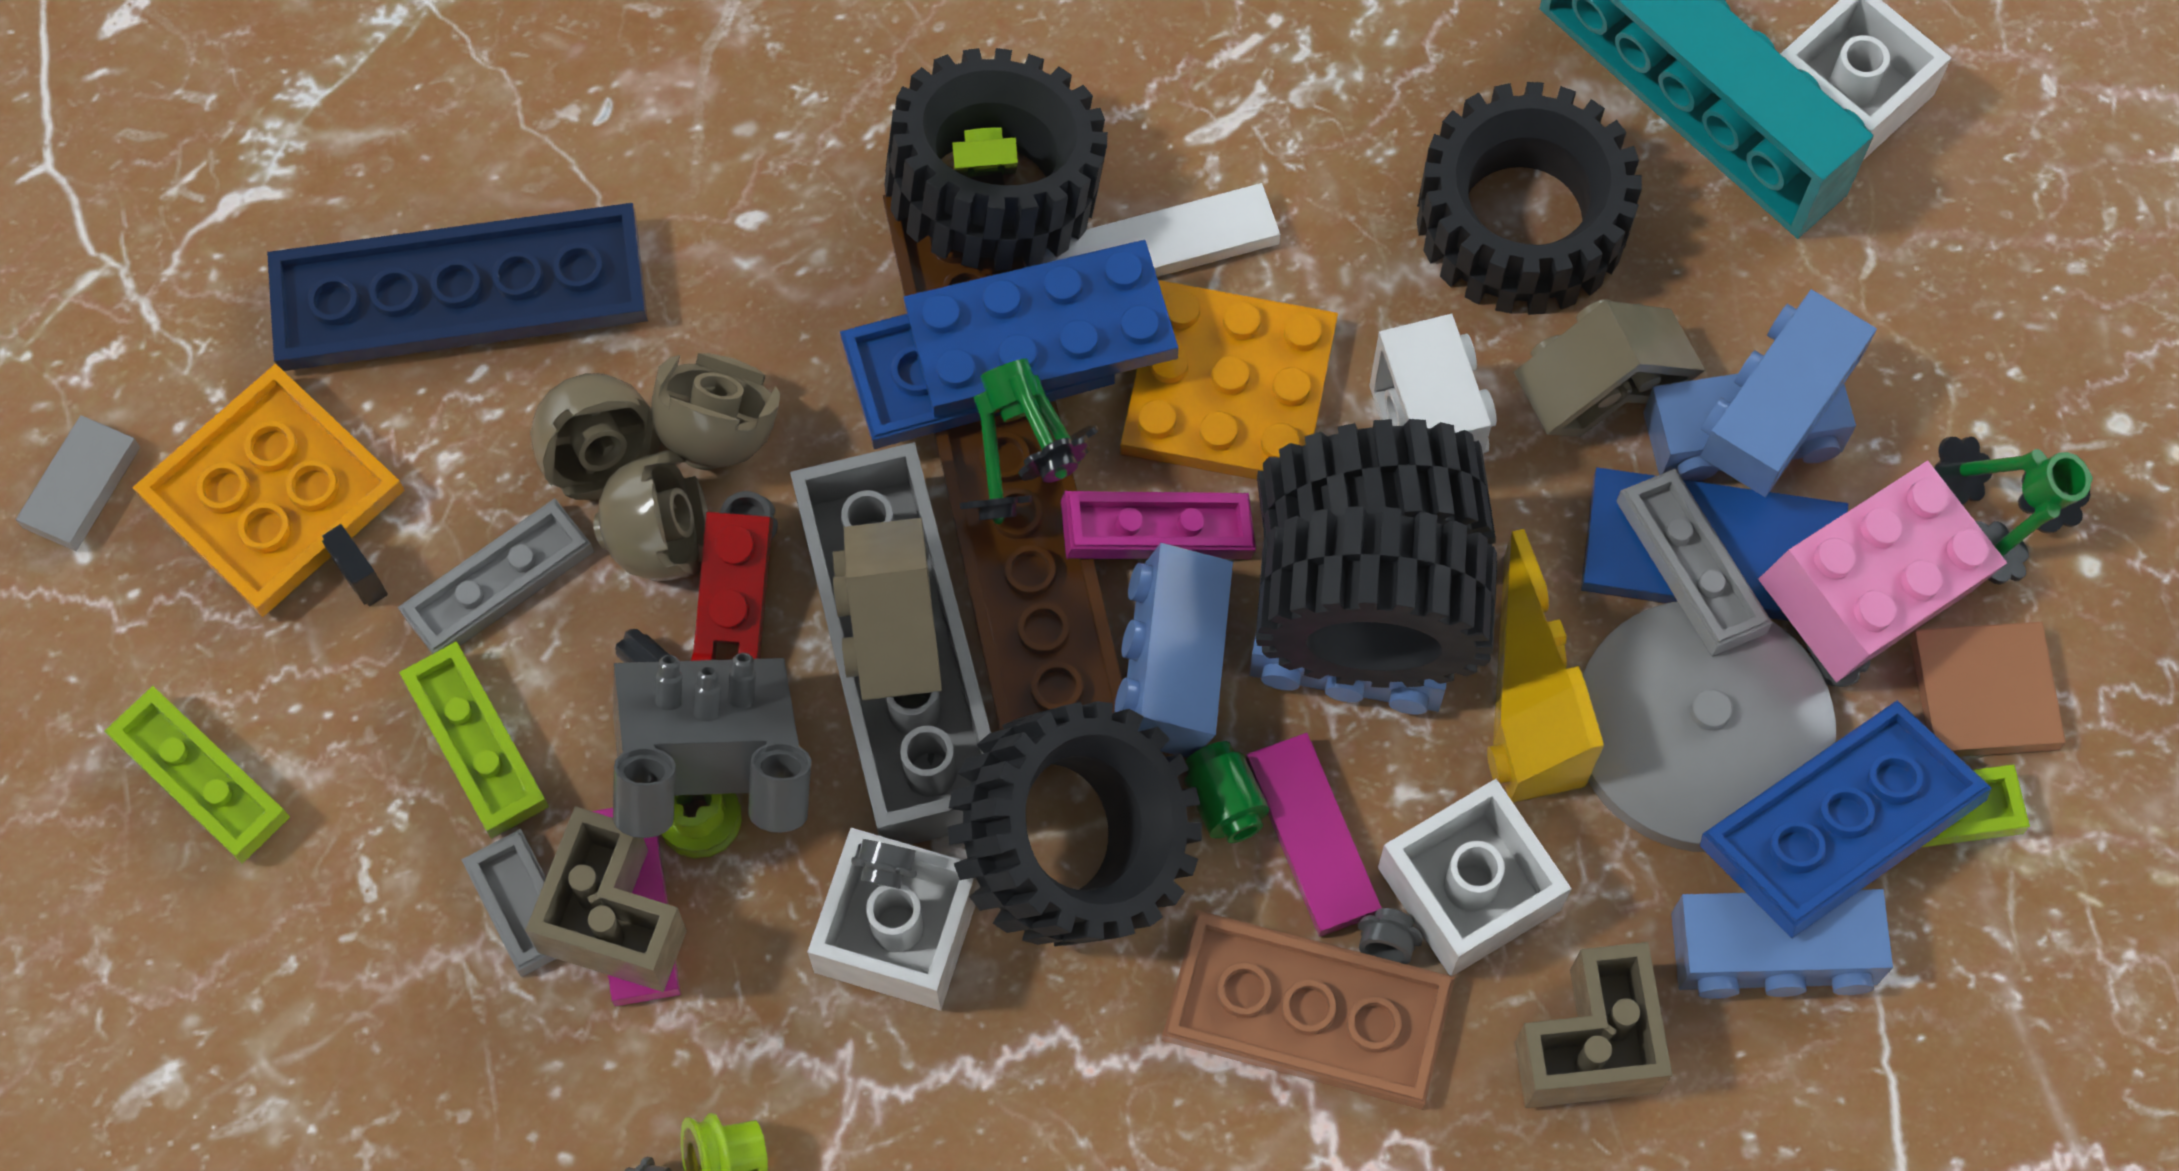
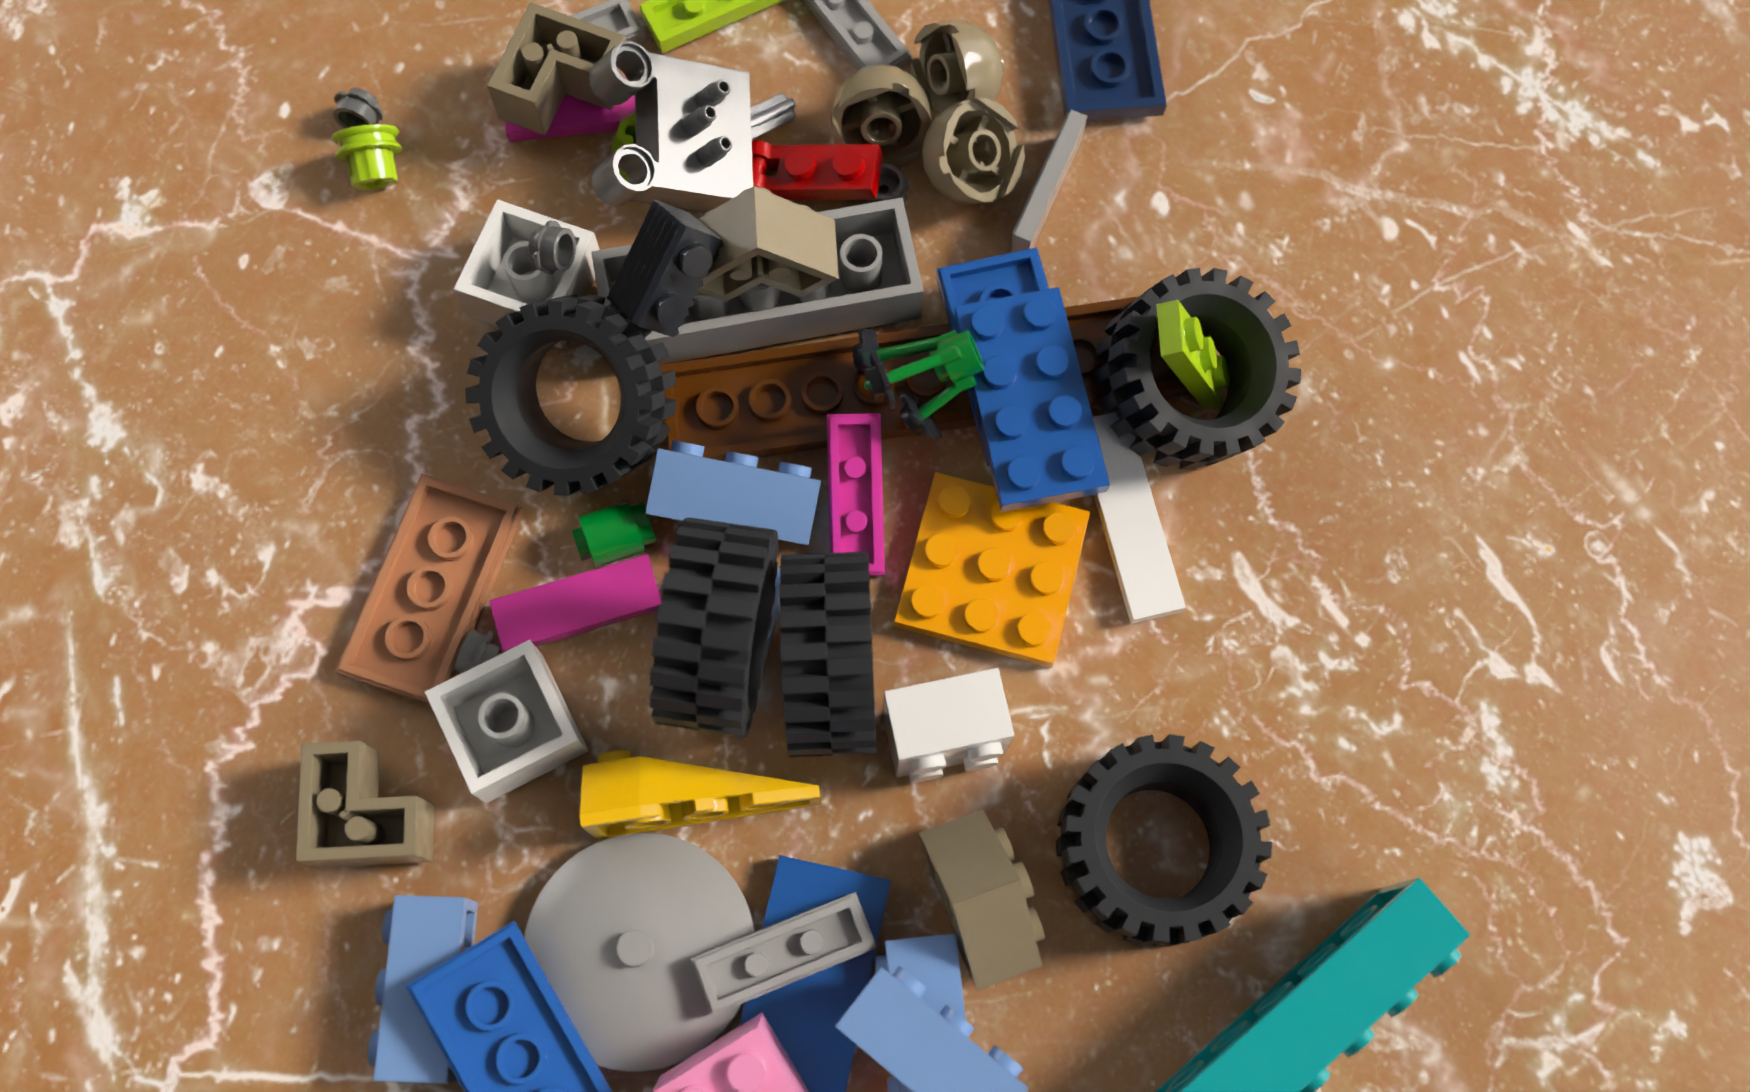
camera: 90 degrees right, 5 degrees up
(746, 332) = (1048, 182): none -> light grey tile
(931, 701) = (664, 269): none -> black brick

